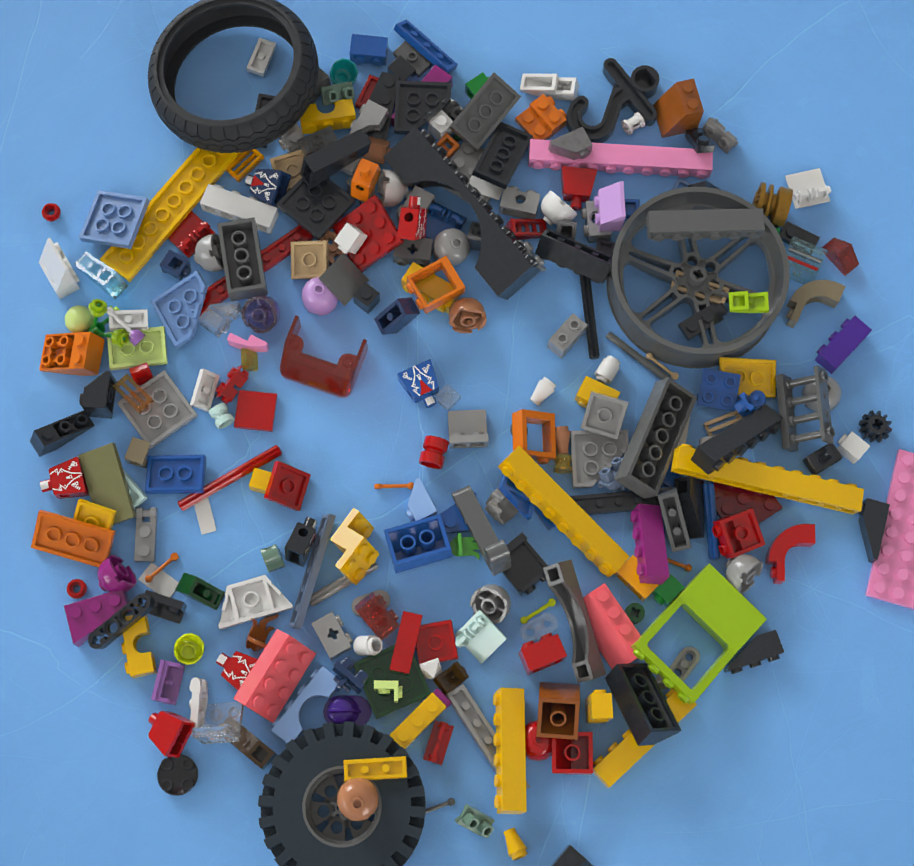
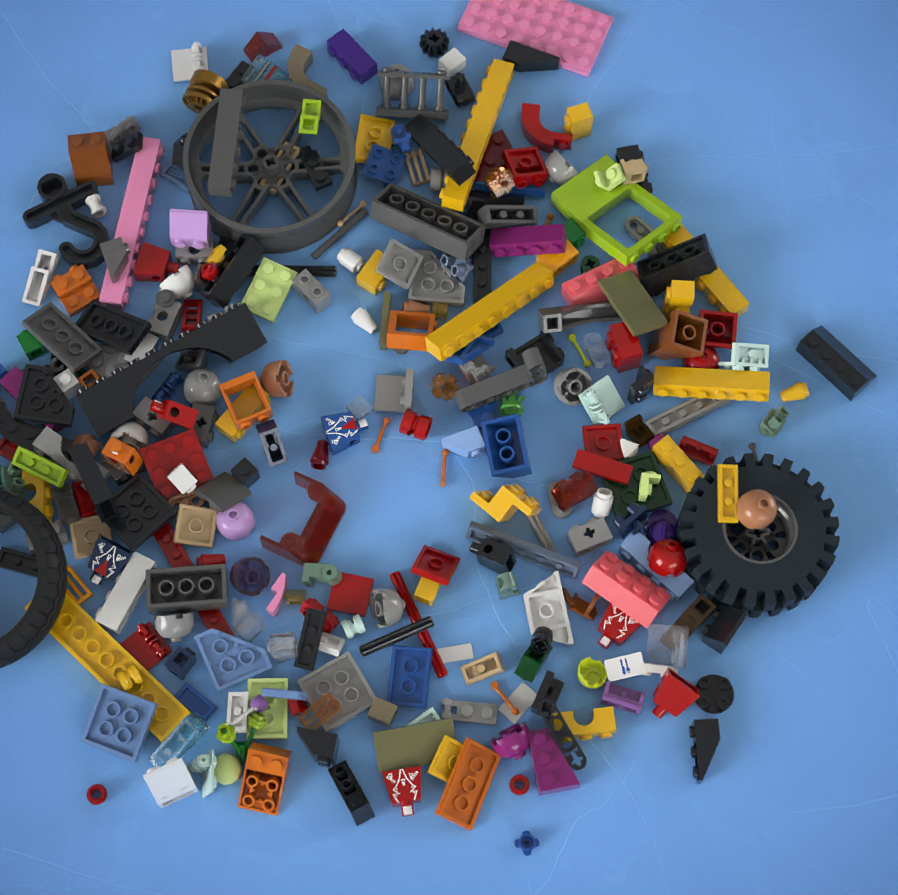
camera: 80 degrees left, 5 degrees down
(15, 600) = (527, 849): none -> blue plate
(77, 297) = (205, 764): none -> light aqua hinge
(129, 768) = (705, 741): none -> black slope
(141, 284) = (195, 702): none -> blue tile
(144, 357) = (284, 694): none -> medium blue tile
(154, 221) = (130, 677): none -> yellow wheel
(190, 544) = (483, 668): none -> tan slope
(191, 350) = (283, 646): none -> clear slope
(195, 680) = (624, 666): none -> white sticker
(201, 375) = (310, 639): none -> black tile
(214, 457) = (396, 636): none -> black axle
(219, 596) = (542, 639): none -> black wheel
(242, 445) = (386, 607): none -> light grey cylinder
(243, 779) = (723, 628): none -> black slope
(271, 375) = (320, 573): none -> sand green leg
(276, 278) = (210, 559): none -> red cone
(308, 712) = (667, 558): none -> red cylinder
(347, 111) = (40, 466): none -> lime plate
(392, 365) = (320, 458): none -> dark red cone
(408, 418) = (375, 449): none -> orange hinge
(477, 475) = (449, 389): none -> clear orange brick
(495, 676) = (641, 387): none -> black bracket
(536, 197) = (165, 298): none -> dark grey plate
(539, 785) = (747, 357): none -> light aqua bracket
(559, 410) = (386, 307): none -> olive tile
(563, 295) = (269, 289): none -> yellowish green plate
(569, 232) = (209, 271): none -> red plate
(586, 656) = (632, 303): none -> olive tile
(588, 238) = (216, 255): none -> yellow plate
(711, 506) = (499, 181): none -> clear orange brick
(733, 621) = (610, 178): none -> yellowish green bracket
(746, 647) = (634, 170): none -> tan brick
(801, 584) = (578, 121): none -> yellow brick

